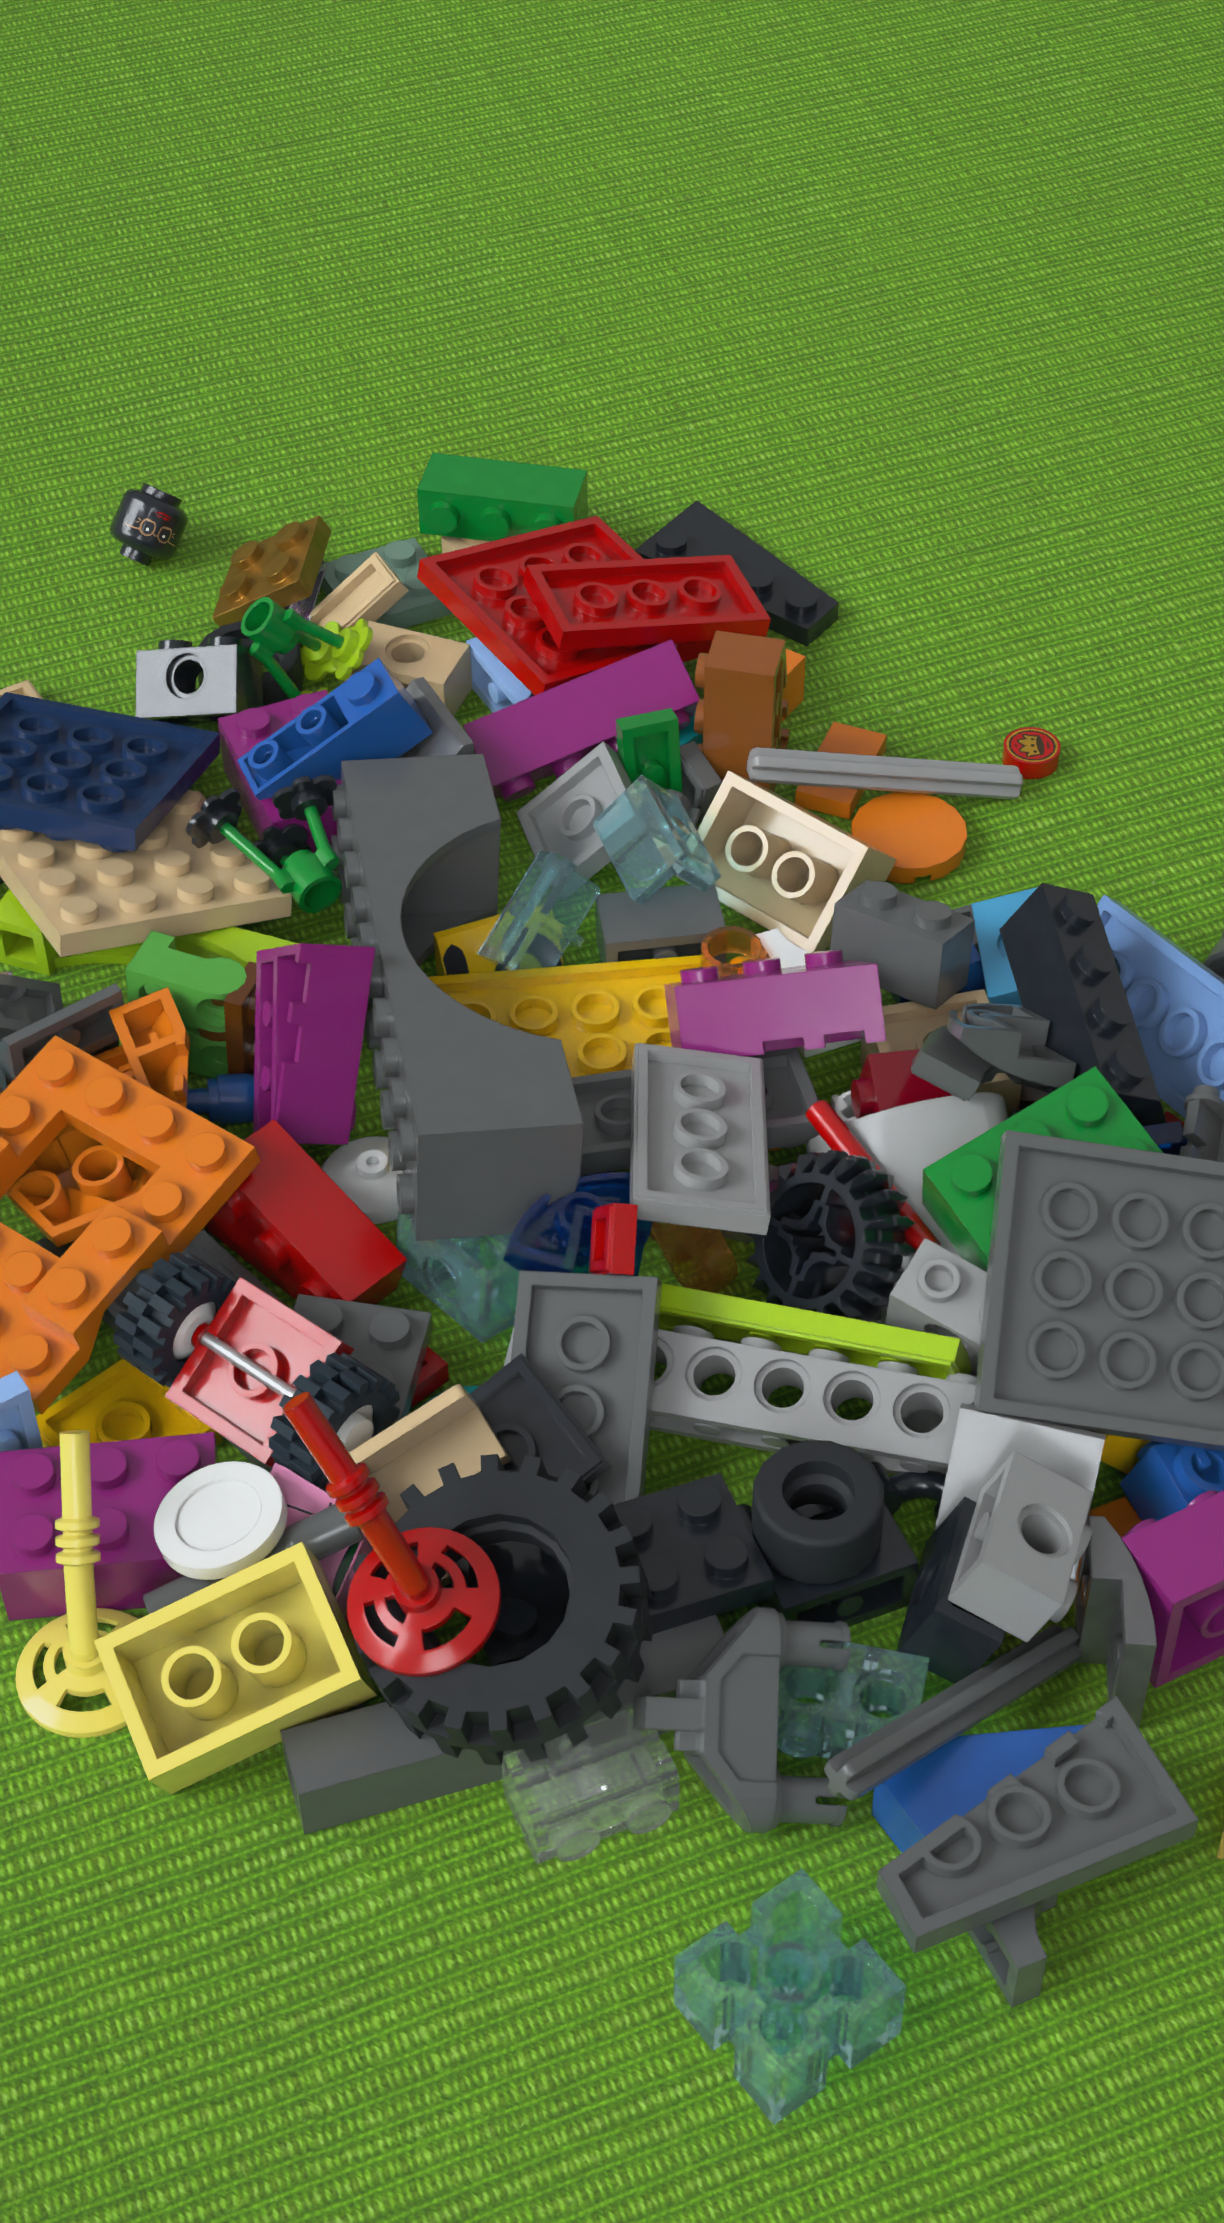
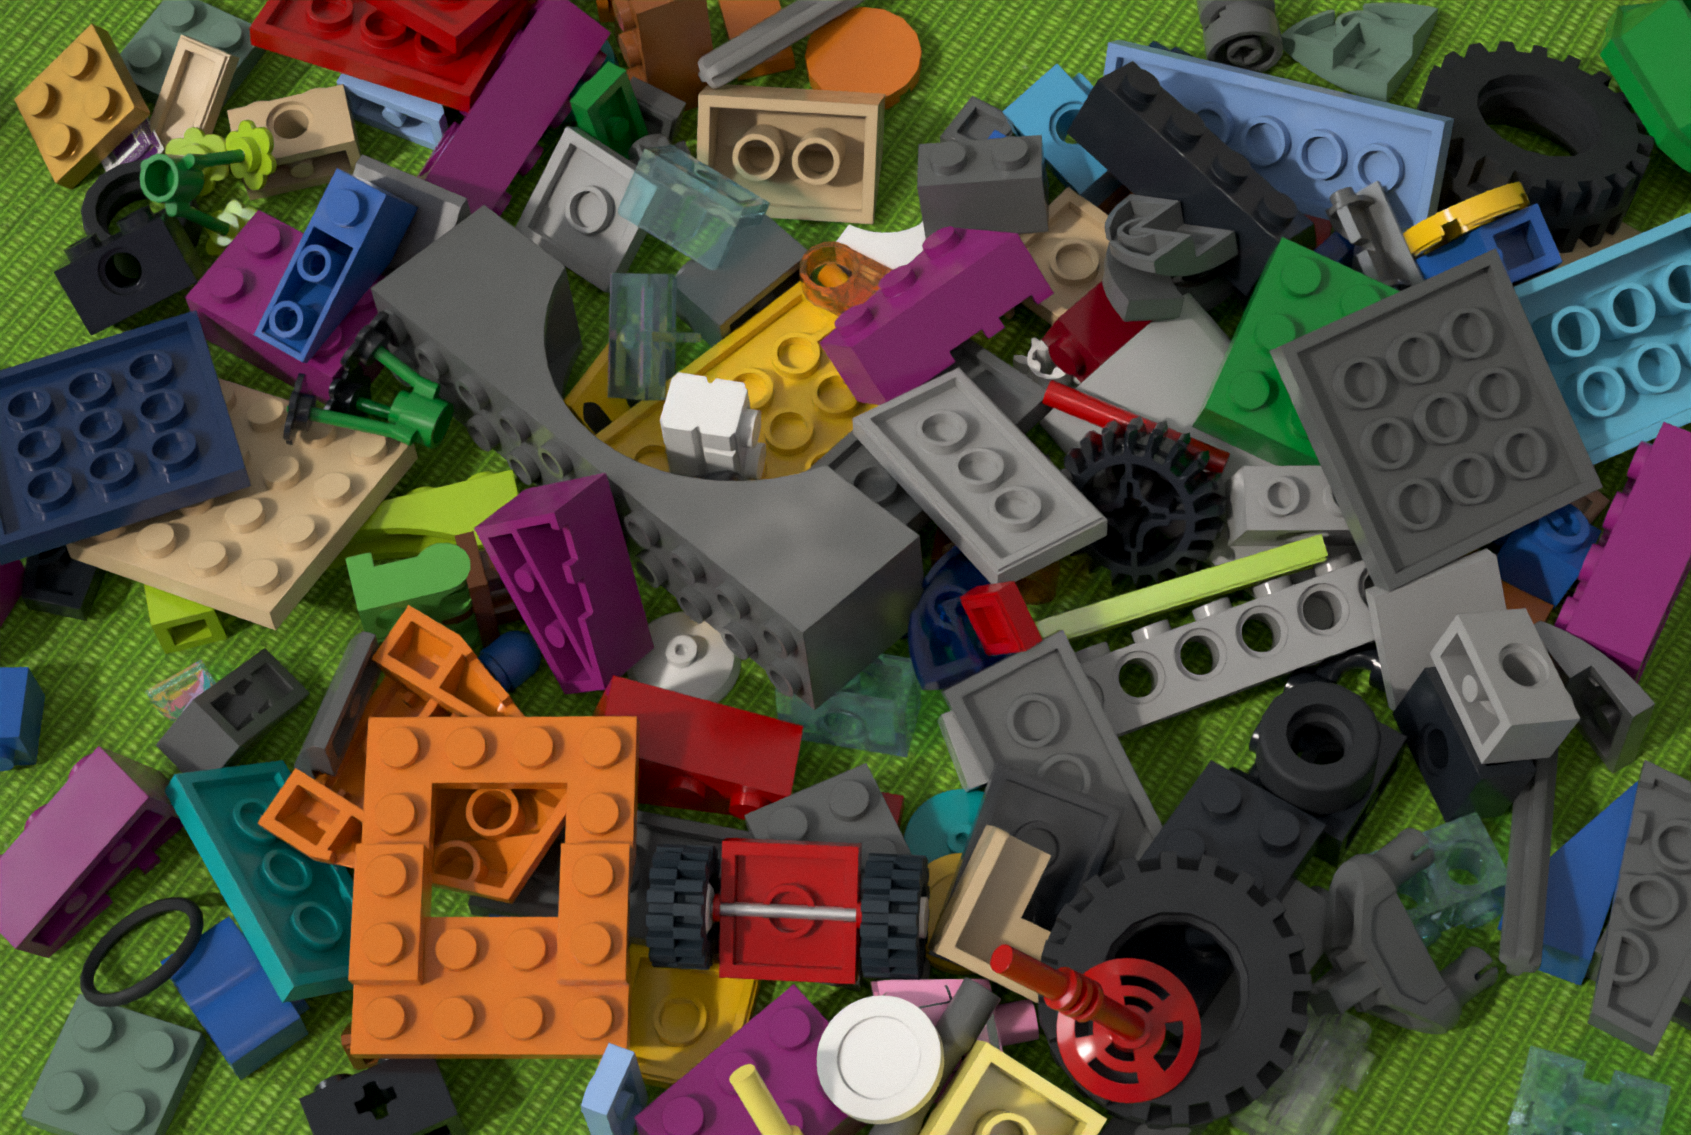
camera: 30 degrees left, 15 degrees up
(514, 983) = (711, 428): none -> white brick

